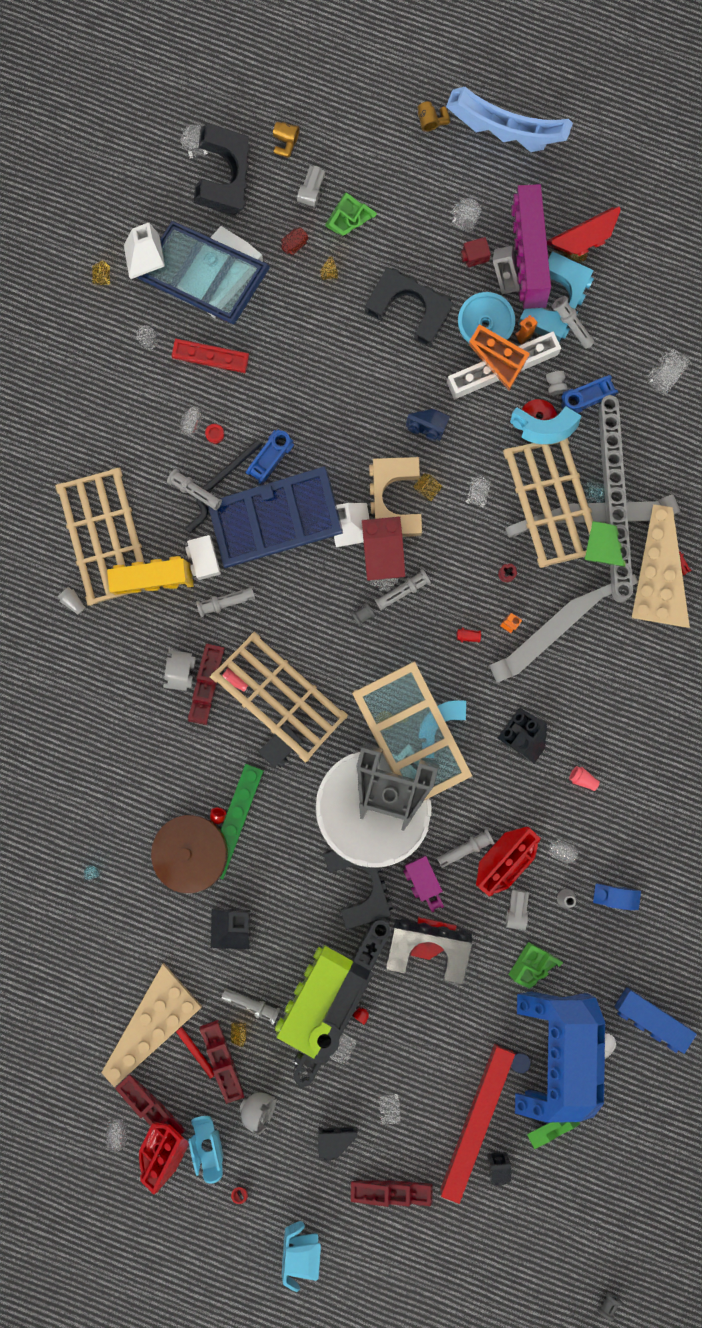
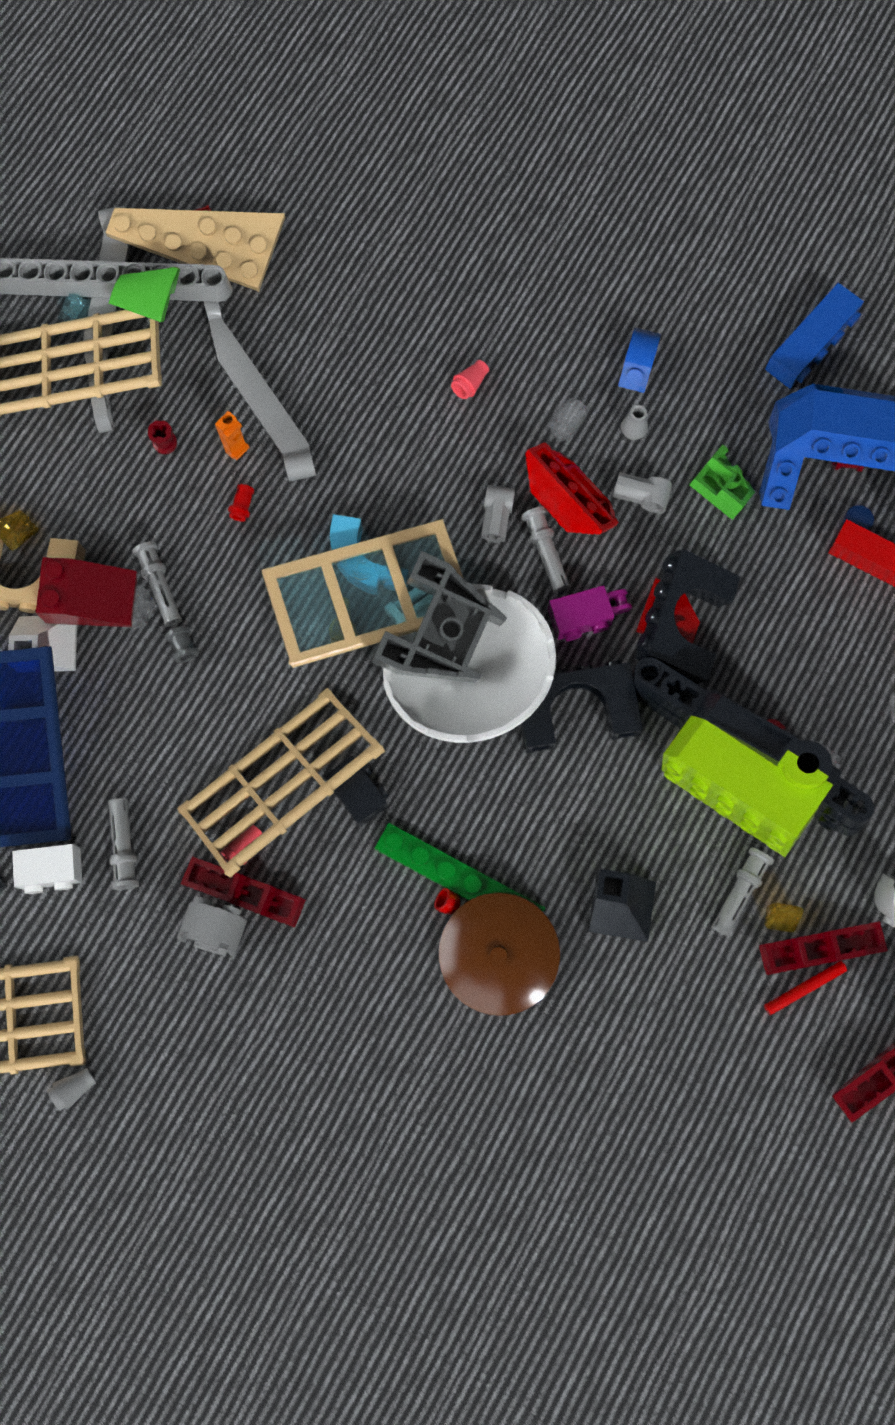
camera: 85 degrees left, 10 degrees down
(91, 872) = (508, 1117): clear light blue hinge -> none
(150, 576) = (55, 952): yellow wedge -> none
(159, 1015) = (747, 1042): tan wing -> none
(478, 491) = (37, 458): clear brick -> none
(487, 811) = (498, 507): none -> light grey piece
(525, 735) = (396, 445): black slope -> none

